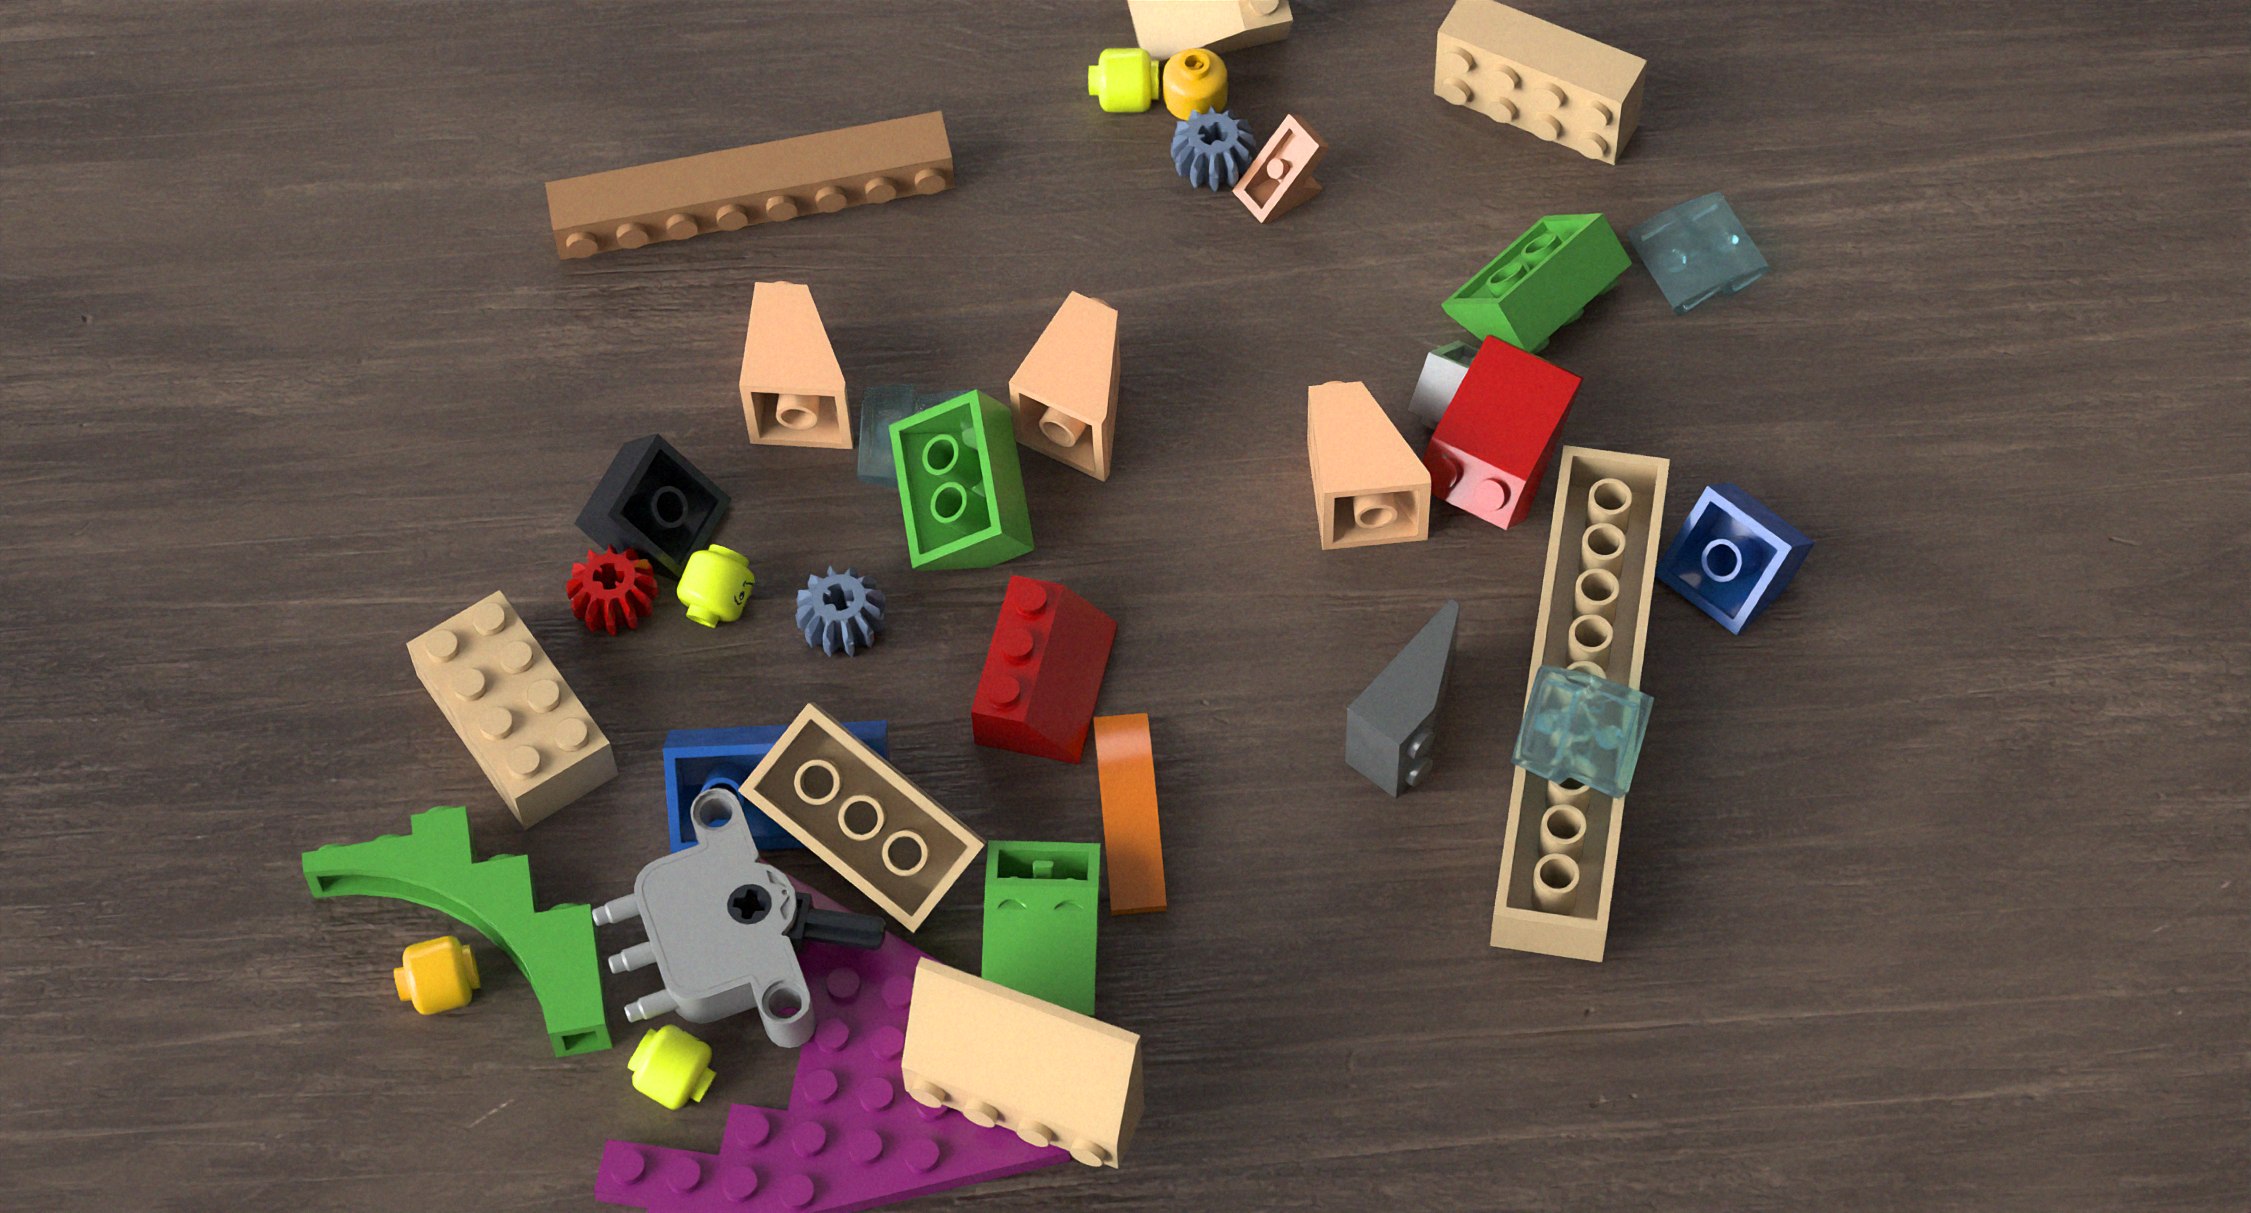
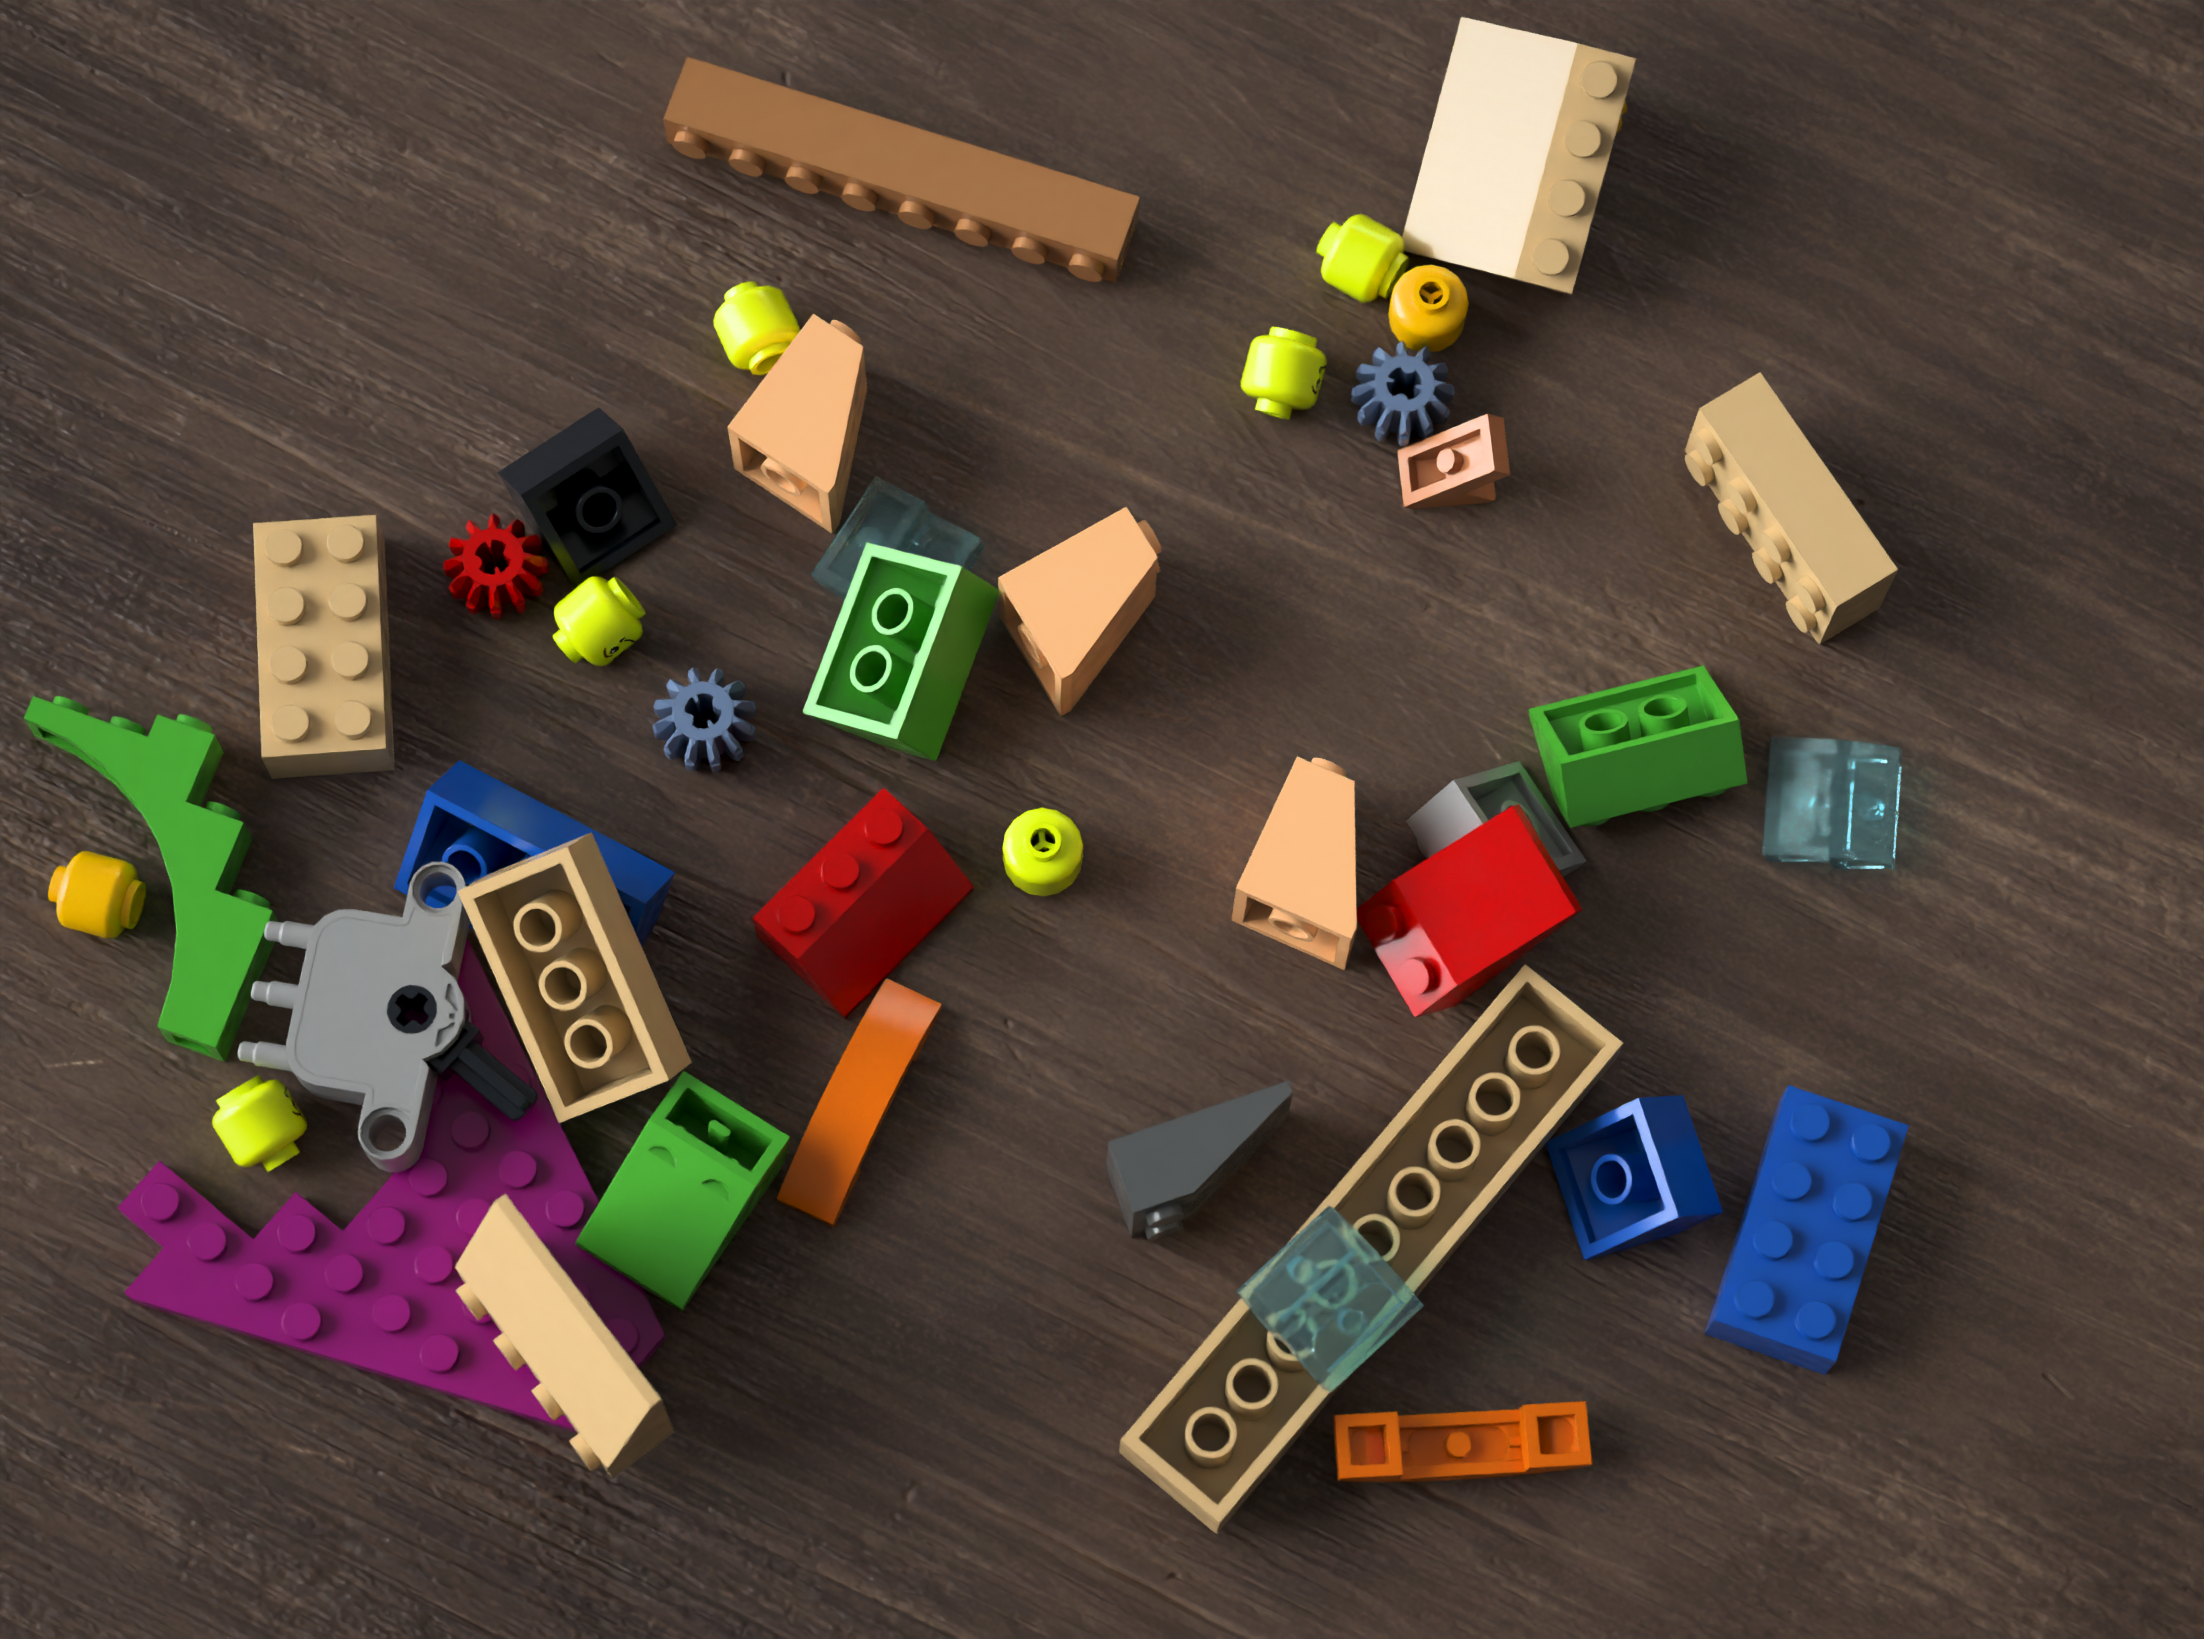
camera: 25 degrees right, 15 degrees up
(709, 337) = (755, 326): none -> neon yellow head
(1118, 175) = (1283, 372): none -> neon yellow head
(1156, 565) = (1041, 871): none -> neon yellow head
(1743, 799) = (1462, 1443): none -> orange slope
(1881, 525) = (1807, 1230): none -> blue brick

